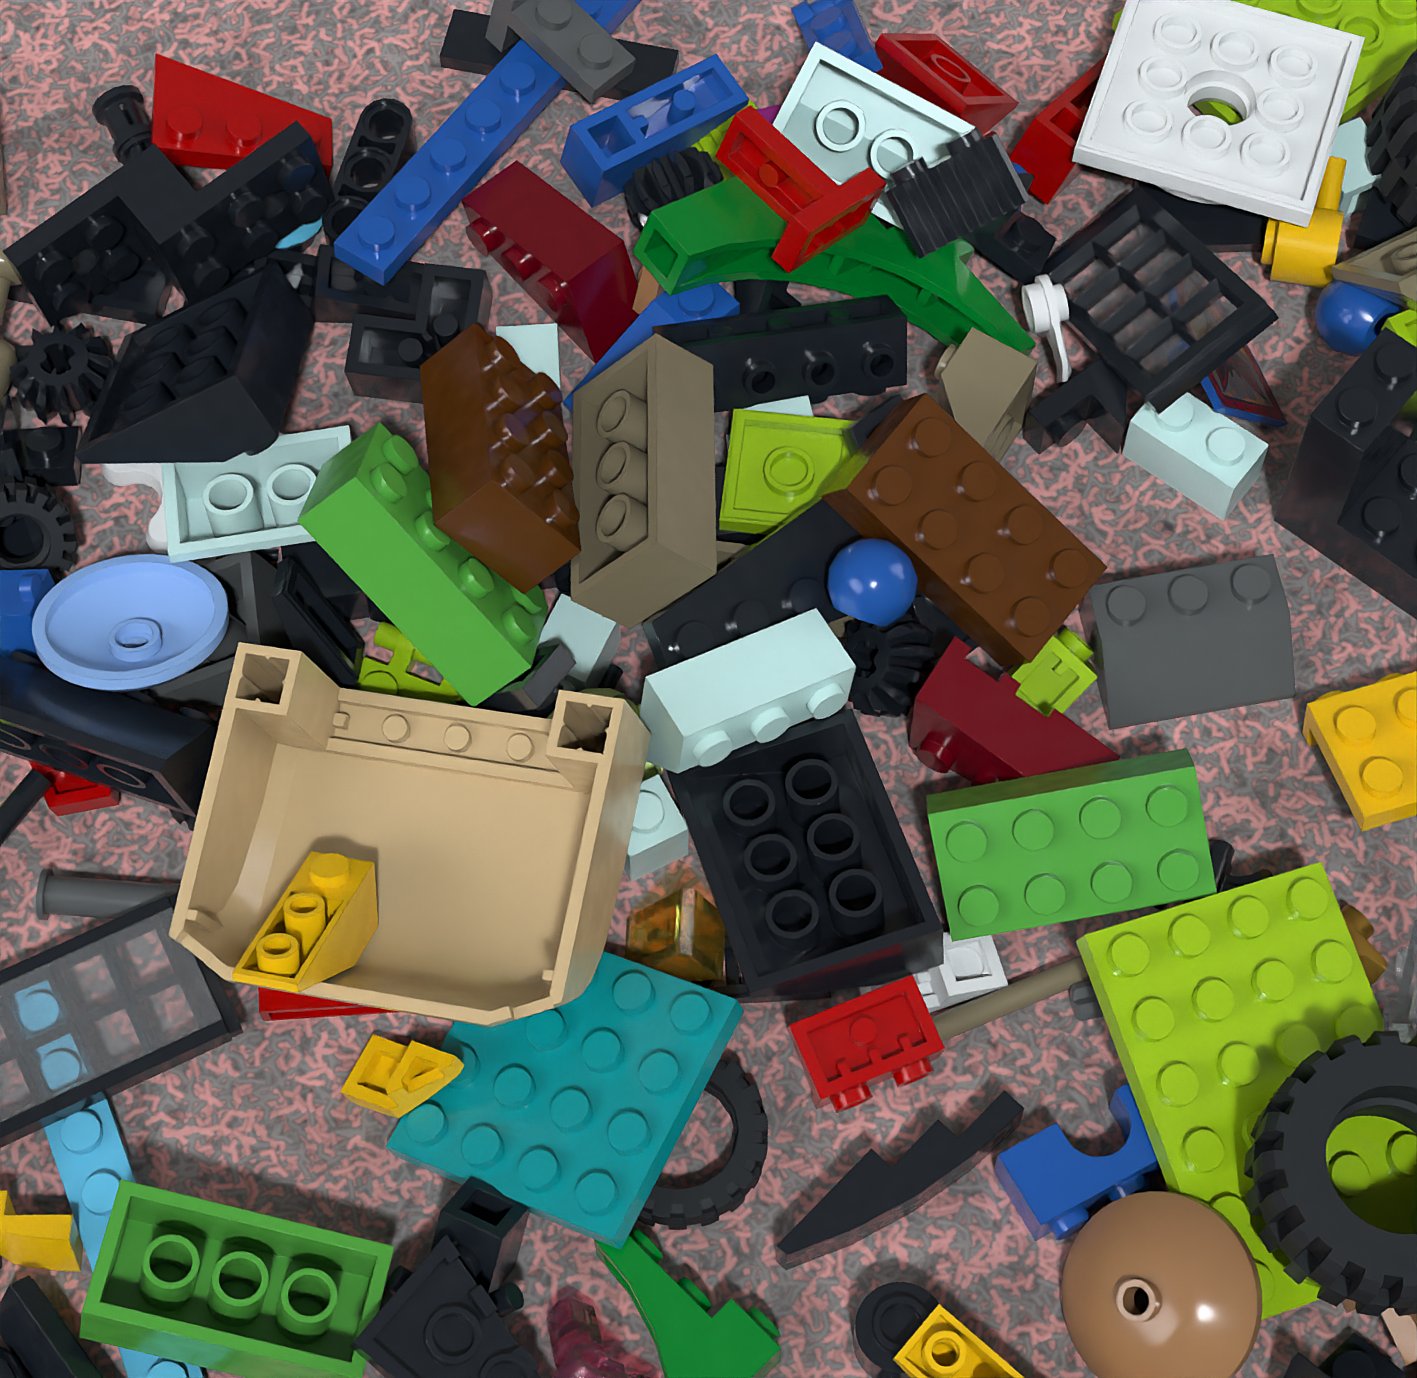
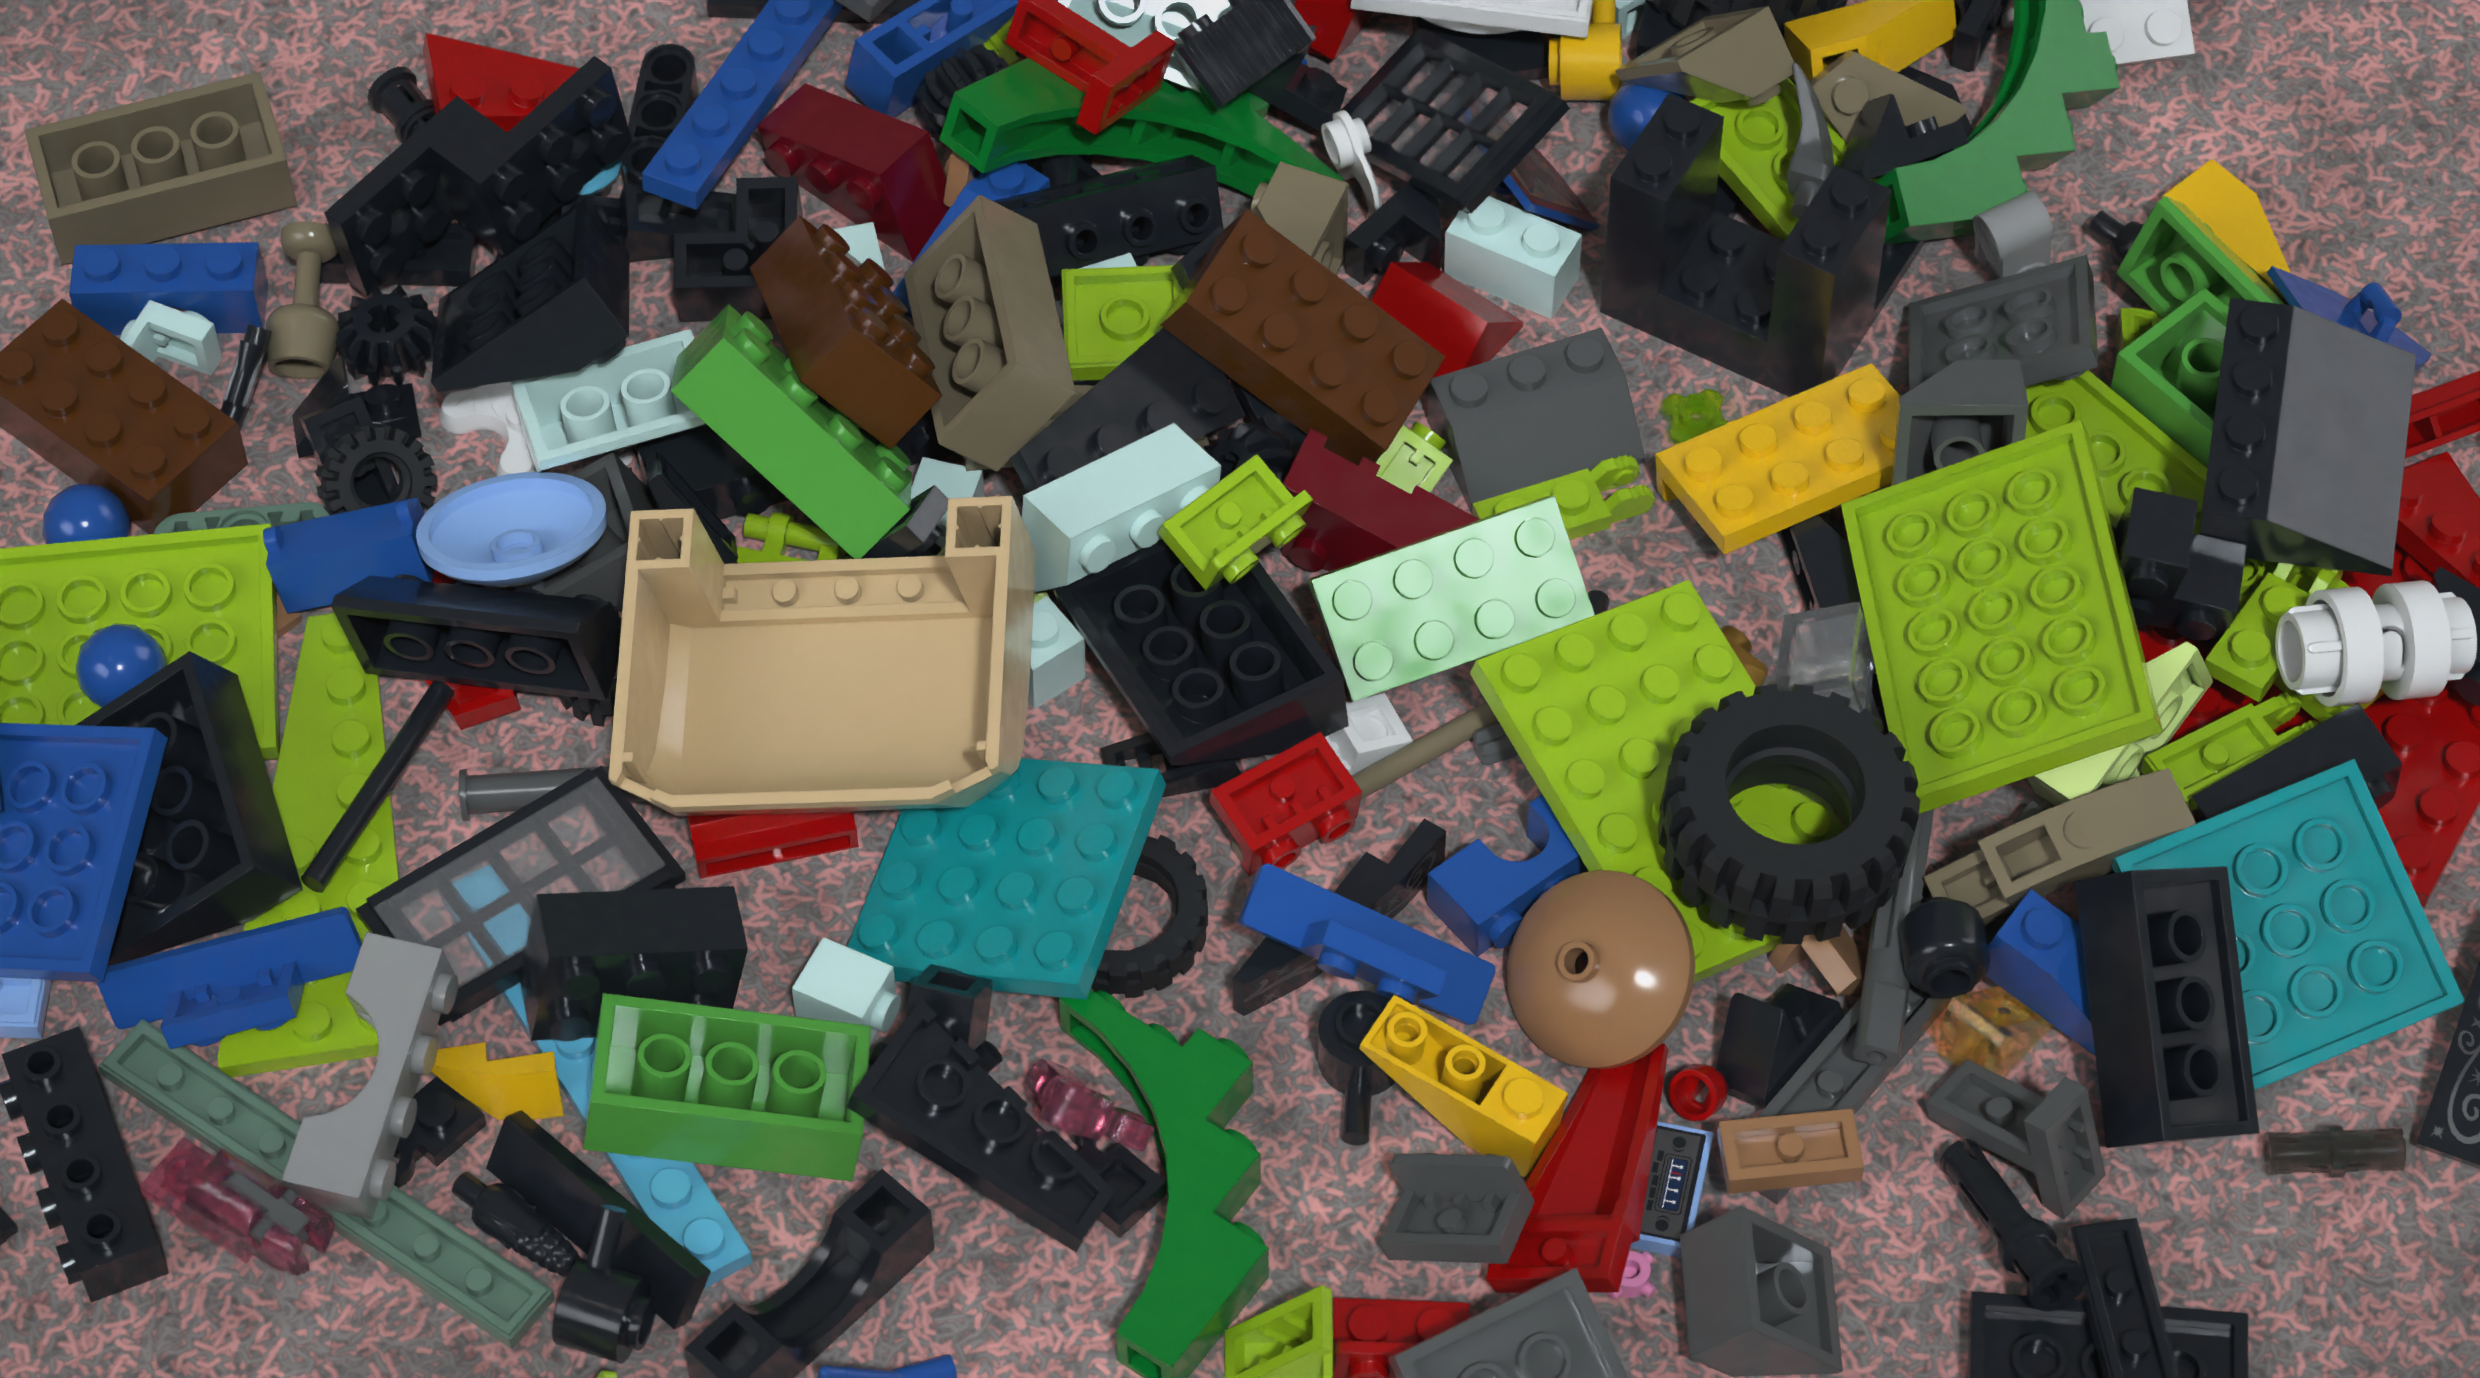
camera: 10 degrees left, 10 degrees down
(166, 1131) = (632, 944): none -> black brick
(315, 926) = (748, 748): yellow slope -> none
(383, 1188) = (846, 988): none -> light aqua brick
(398, 1077) = (842, 899): yellow slope -> none
(678, 937) = (1091, 729): clear yellow slope -> none
(858, 733) = (1233, 522): none -> lime bracket
(872, 581) = (1224, 390): blue piece -> none
(920, 1234) = (1366, 944): none -> blue bracket
(1111, 508) = (1445, 314): none -> red slope
(1209, 733) = (1581, 498): none -> lime hinge
(1341, 670) = (1681, 408): none -> clear neon green plate

